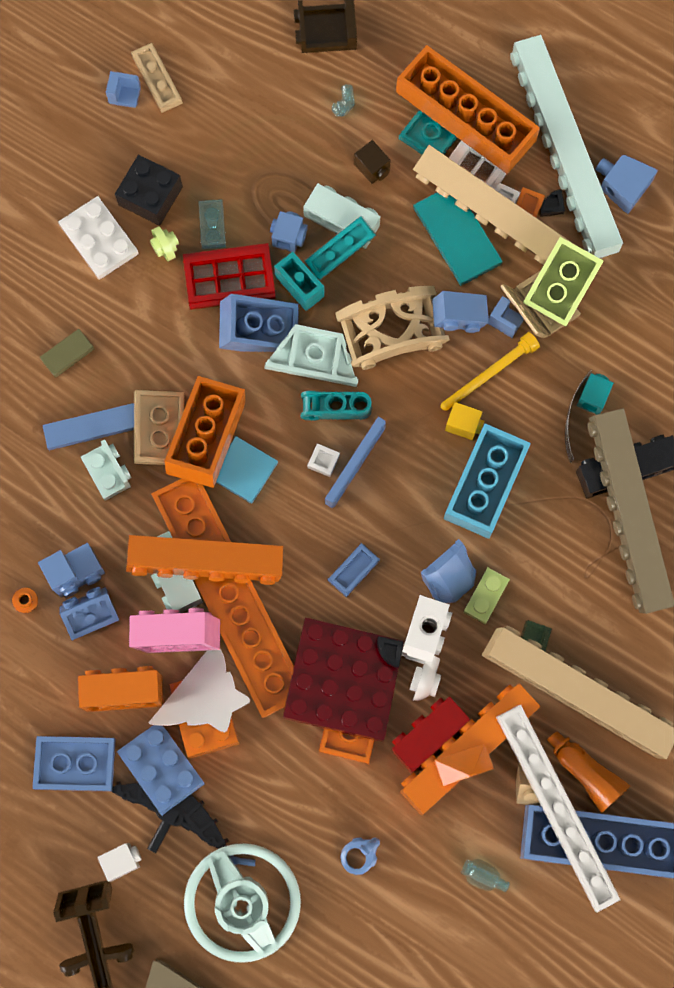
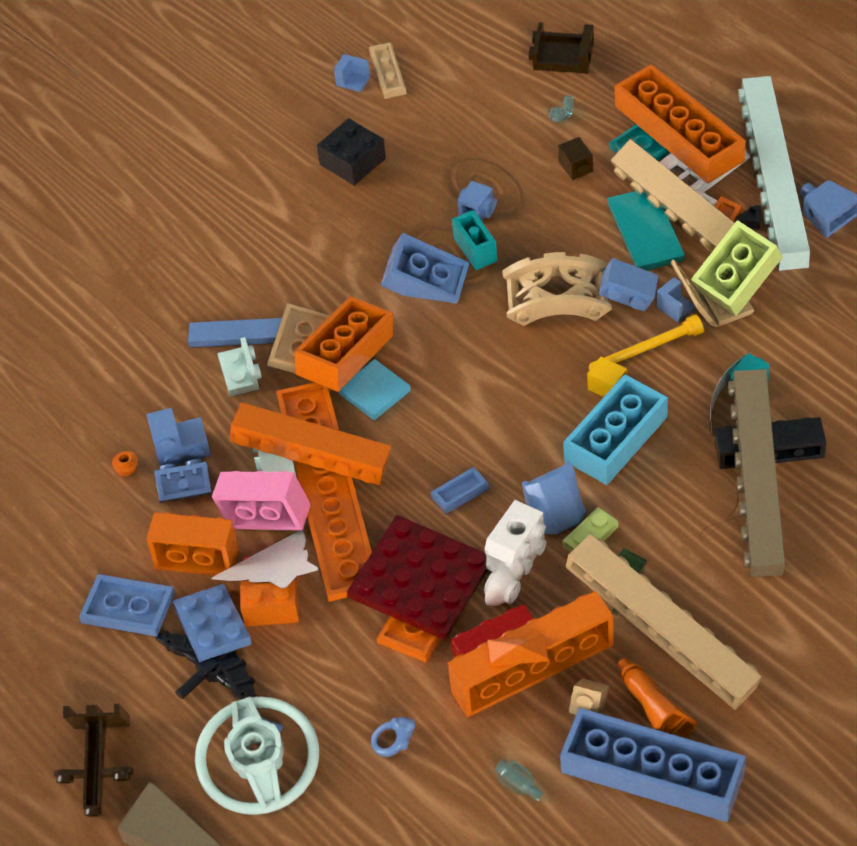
camera: 20 degrees right, 25 degrees down
(67, 353) = (232, 271): olive tile -> none
(98, 237) = (292, 185): white plate -> none
(120, 861) = (144, 696): white brick -> none
(164, 243) = (352, 193): yellowish green plate -> none
(212, 224) = (404, 187): clear light blue plate -> none
(228, 271) = (386, 226): red piece -> none
(314, 355) = (471, 303): light aqua wing -> none
(321, 405) = (482, 348): teal piece -> none
(323, 460) = (456, 391): white plate -> none
(336, 211) = (533, 196): light aqua brick -> none
(340, 248) = (523, 218): teal tile -> none
(355, 462) = (486, 397): medium blue tile -> none
(390, 650) = (474, 556): black tile -> none
(558, 808) = (607, 711): white tile -> none

